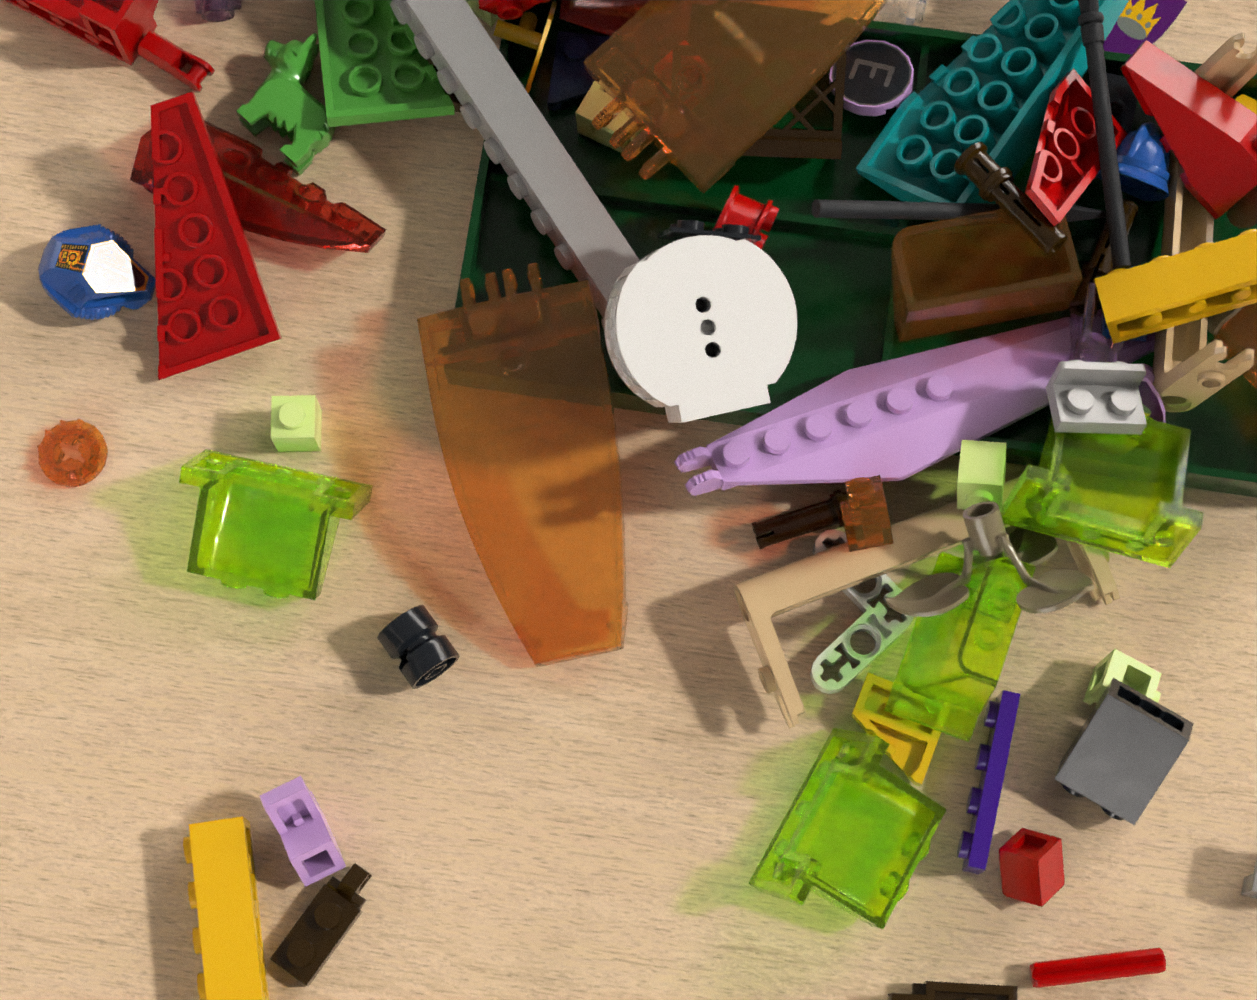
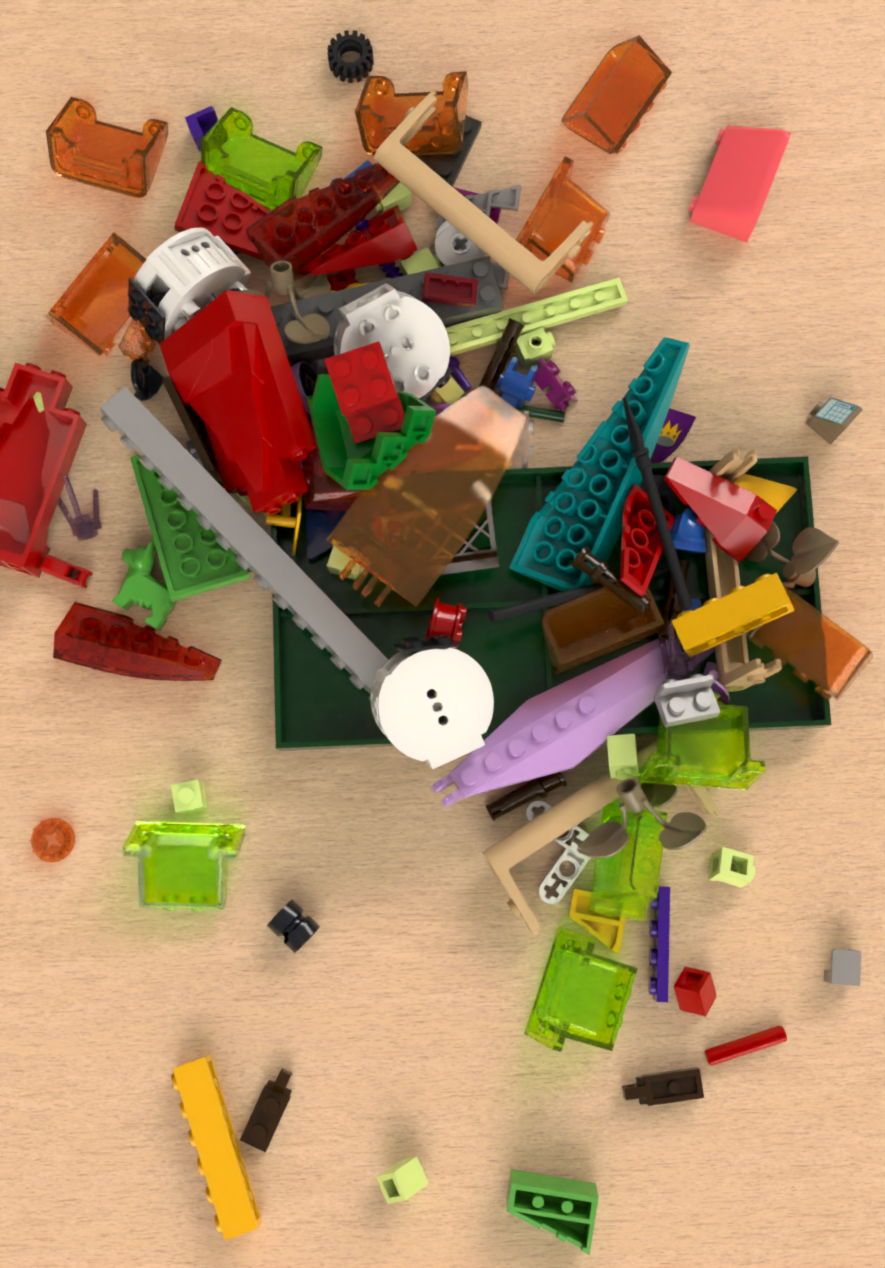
camera: 10 degrees left, 5 degrees up
(93, 273) = (42, 722): blue helmet -> none
(204, 268) = (110, 706): red wing -> none
(303, 831) = (245, 1057): lavender brick -> none
(534, 458) = (342, 794): clear orange windscreen -> none
(866, 514) = (555, 795): clear orange brick -> none
(875, 77) = (511, 505): black tile -> none
(1123, 752) = (739, 911): brick -> none

